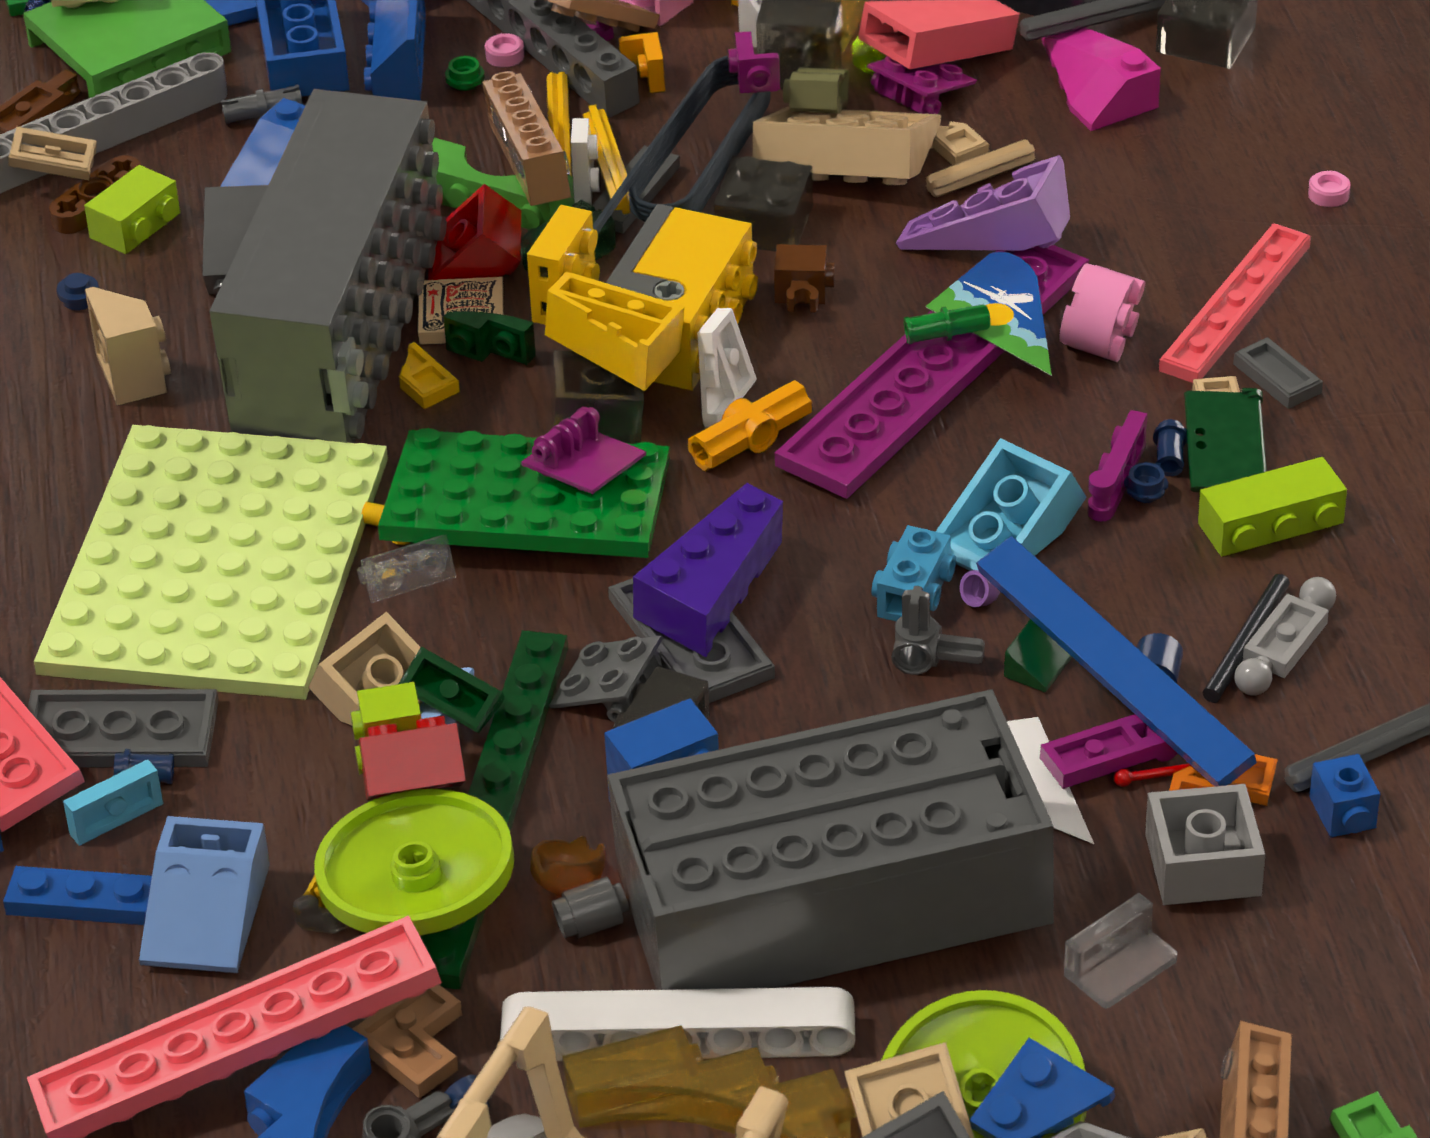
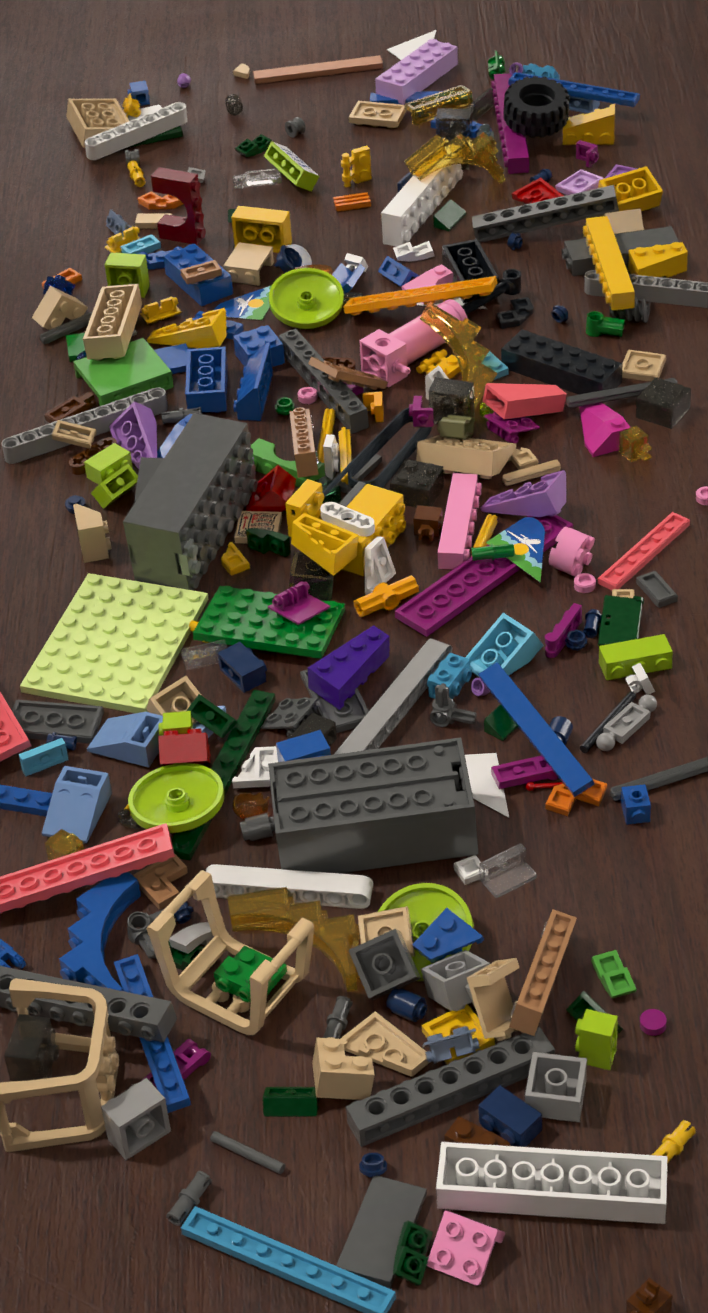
camera: 10 degrees right, 0 degrees up
(157, 249) = (115, 486): none -> lime brick
(179, 140) = (136, 432): none -> medium lavender wedge
(191, 981) = (62, 844): none -> clear yellow brick
(287, 748) = (129, 738): none -> medium blue slope
(489, 587) = (242, 667): none -> dark blue brick
(568, 790) = (256, 769): none -> white wing
(679, 282) = (359, 524): none -> white beam
(818, 627) = (397, 699): none -> light grey beam
(861, 279) = (458, 521): none -> bright pink brick
(917, 288) = (486, 531): none -> yellow axle
(1038, 956) = (468, 869): none -> white tile
(1135, 371) = (584, 583): none -> bright pink tile
(1171, 101) = (634, 444): none -> clear yellow brick
(1204, 844) = (559, 822): light grey brick -> none
(1292, 551) = (639, 680): none -> white tile

